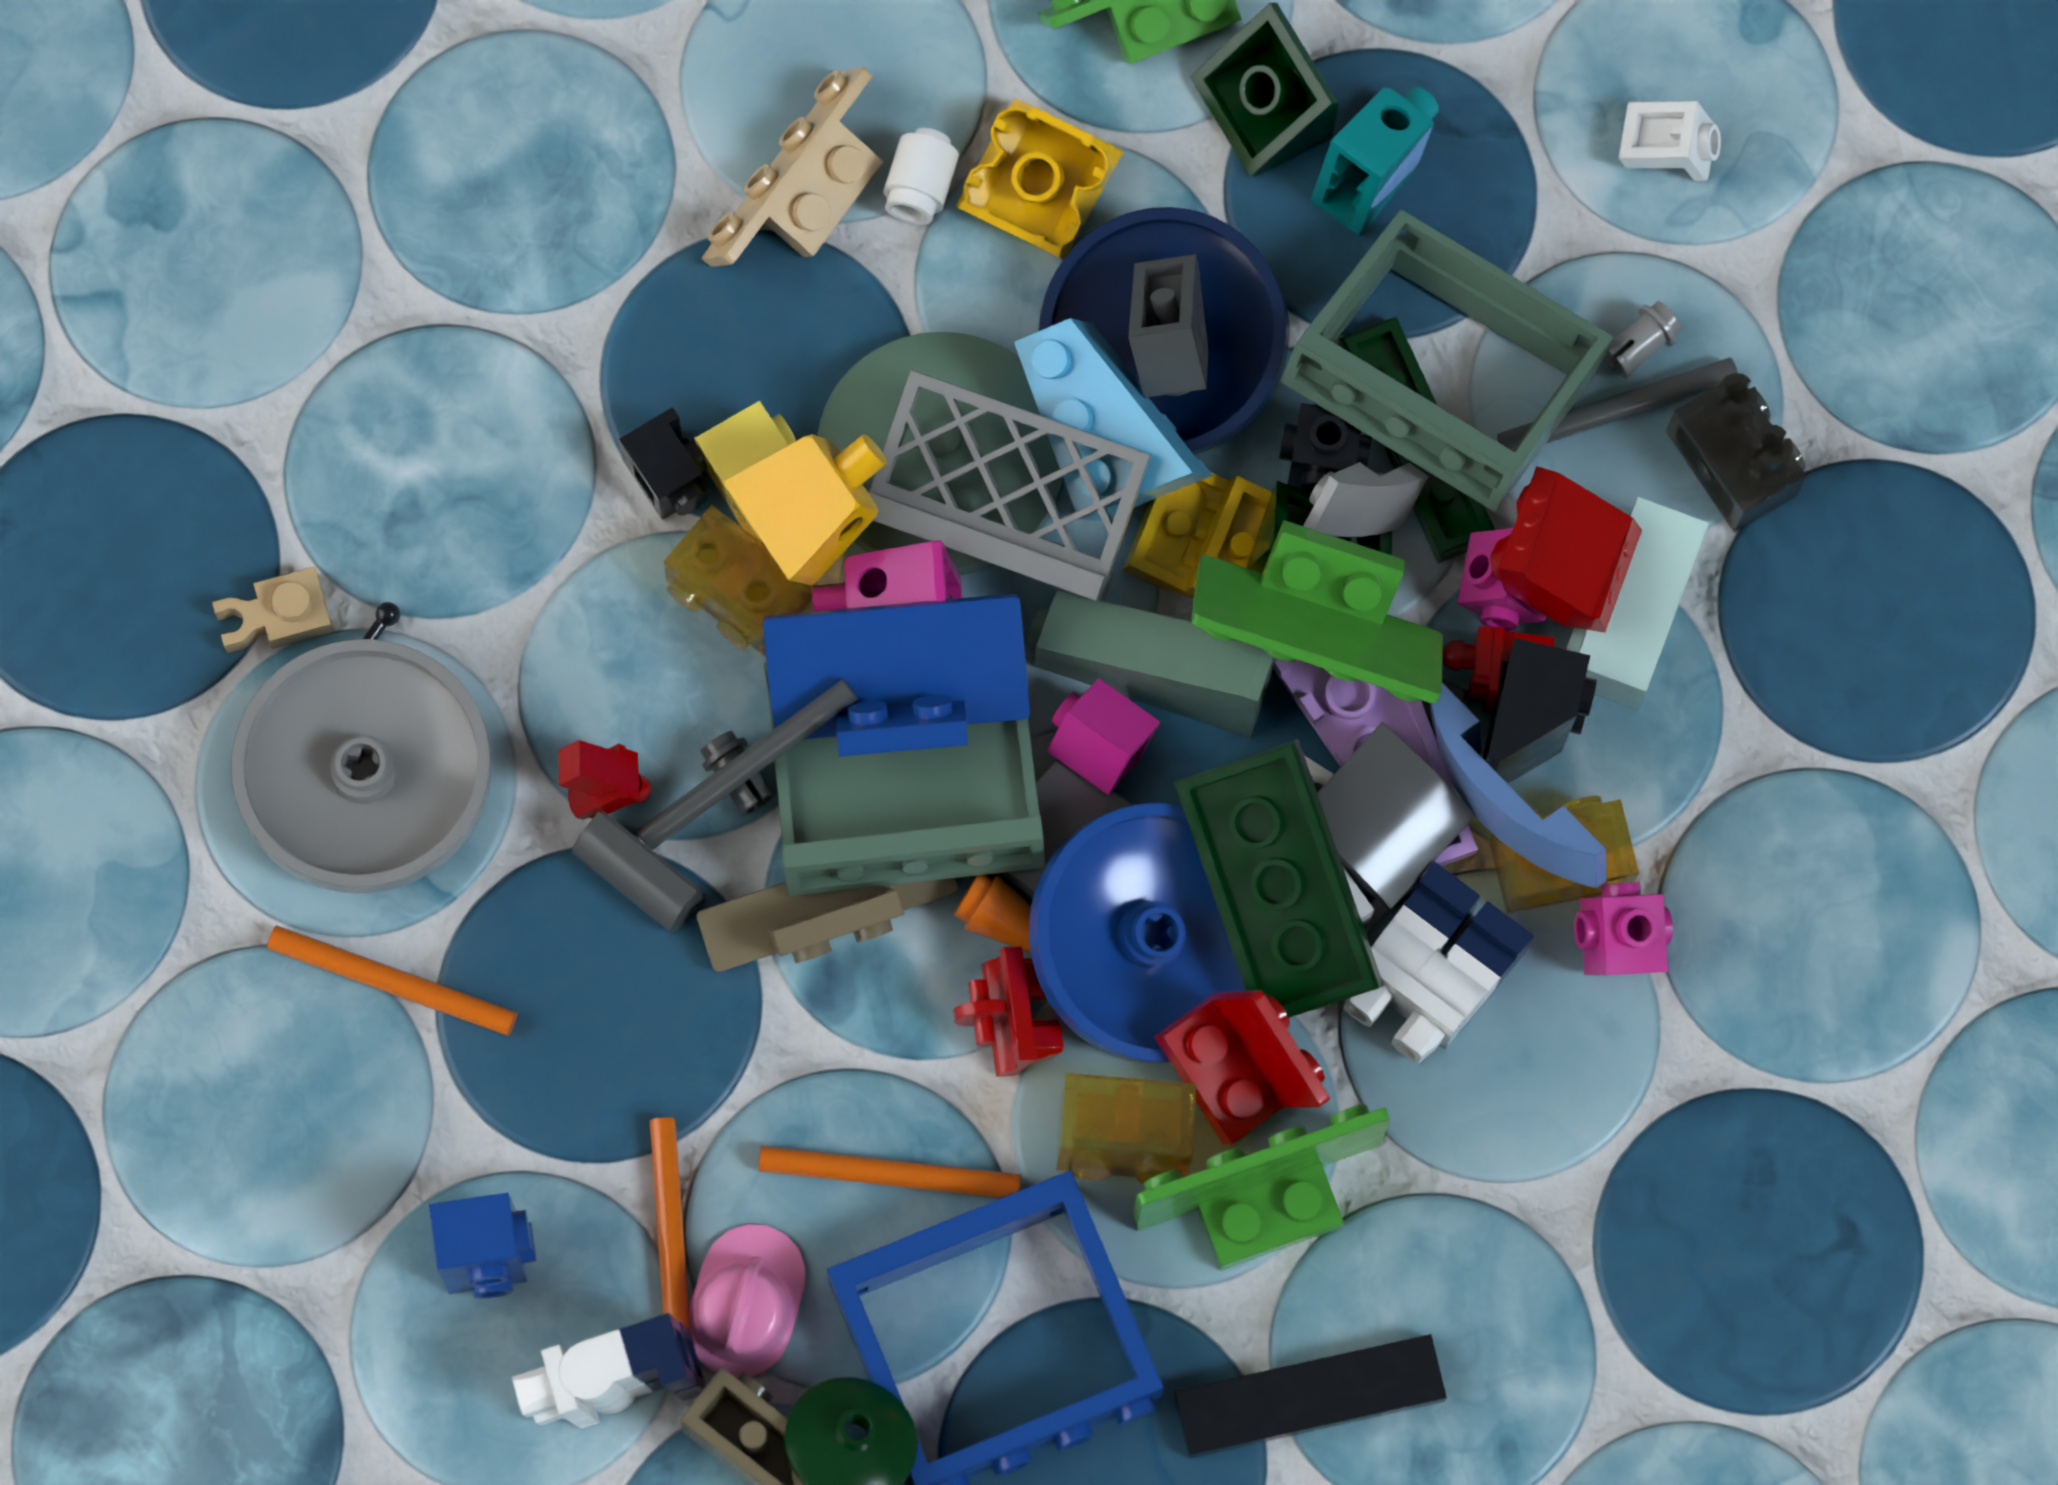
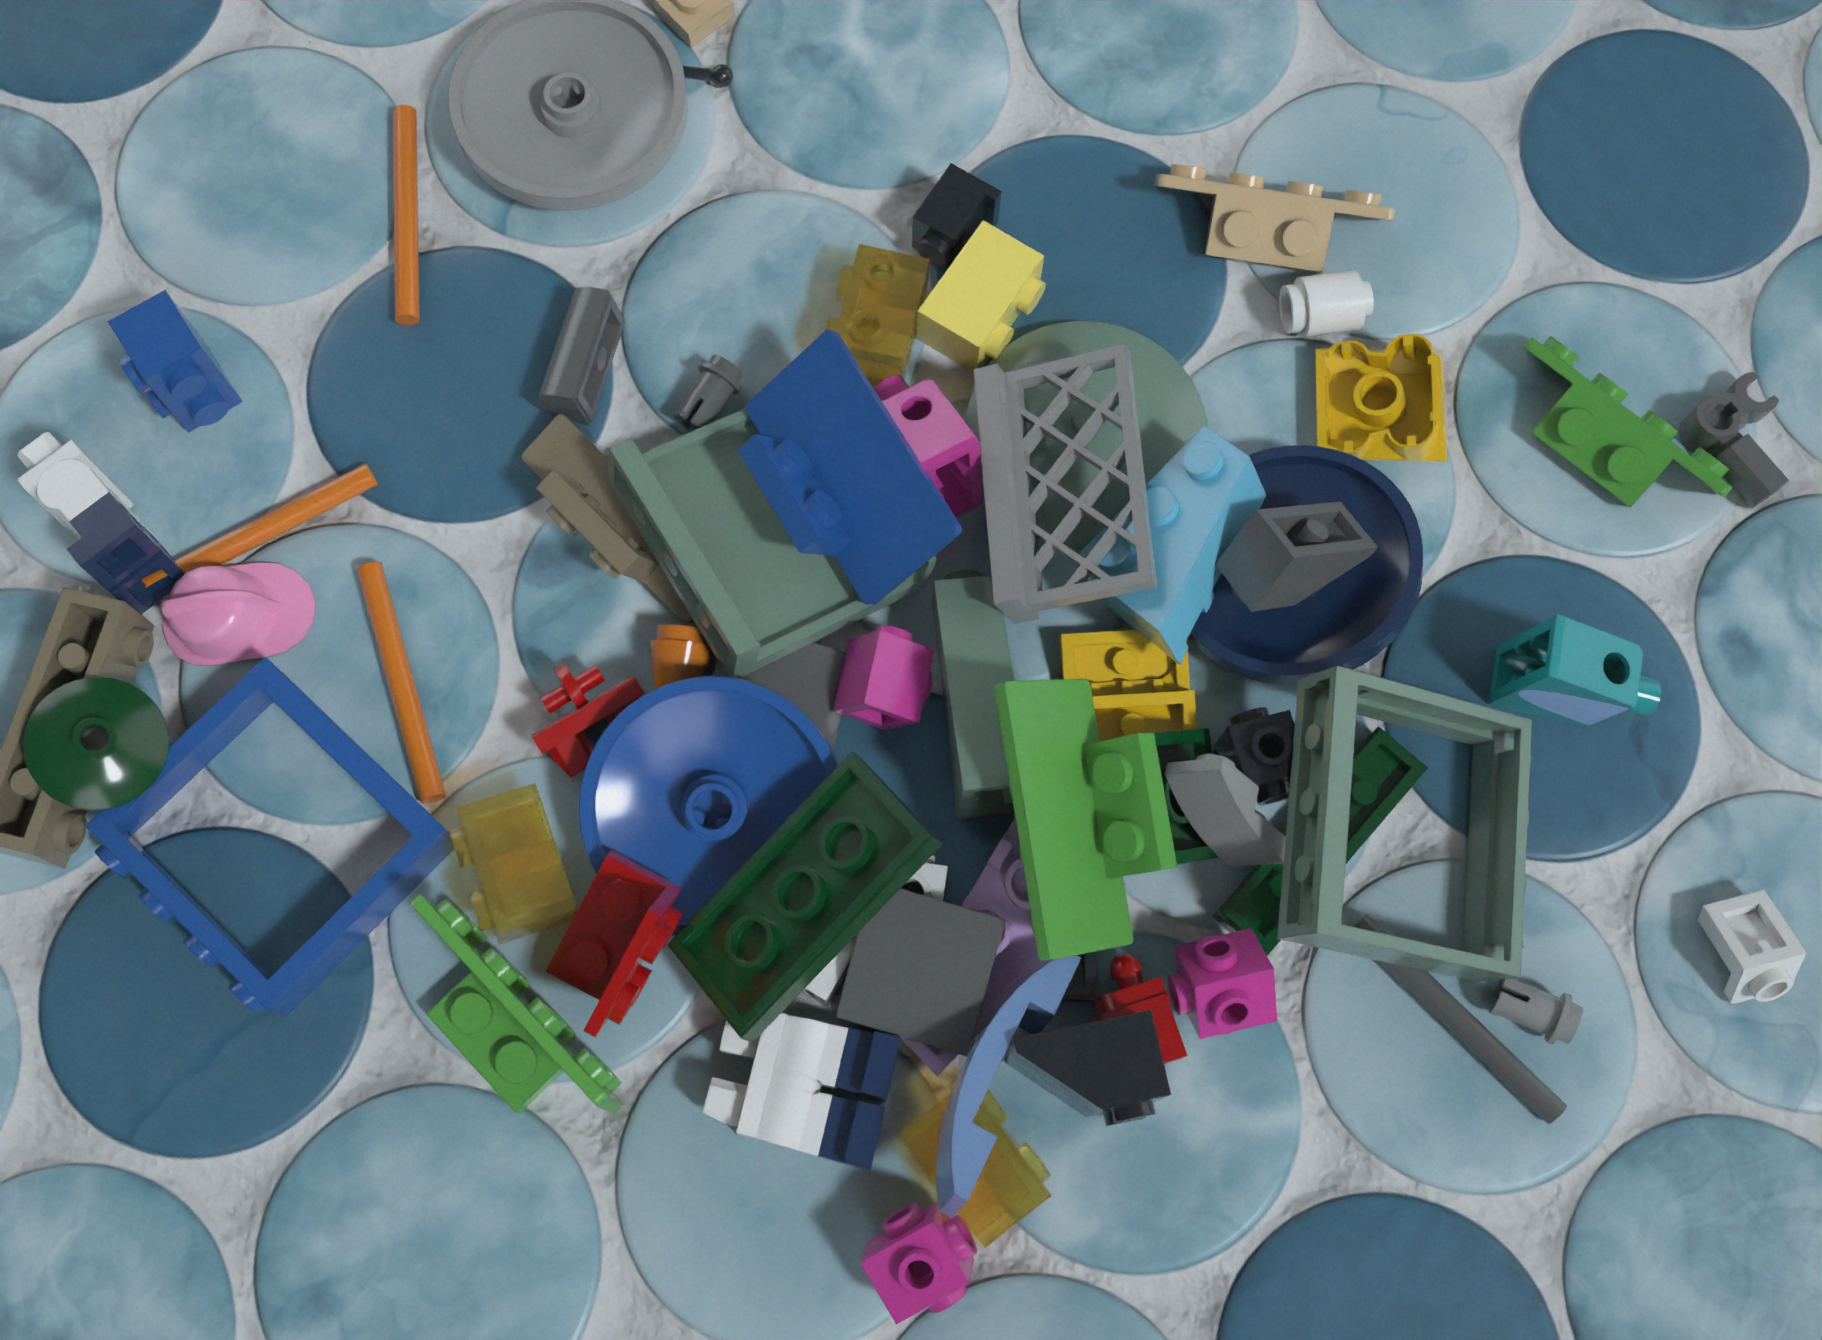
camera: 65 degrees right, 0 degrees up
(601, 778) = (646, 286): red piece -> none
(747, 764) = (711, 391): dark grey bar -> none
(809, 501) = (958, 319): yellow torso -> none
(1267, 93) = (1573, 554): dark green slope -> none
(1310, 1396) = (335, 1158): black tile -> none
(1566, 552) = (1271, 1025): red slope -> none
(1646, 605) = (1268, 1119): light aqua brick -> none
(1737, 451) = (1475, 1156): clear smoke brick -> none

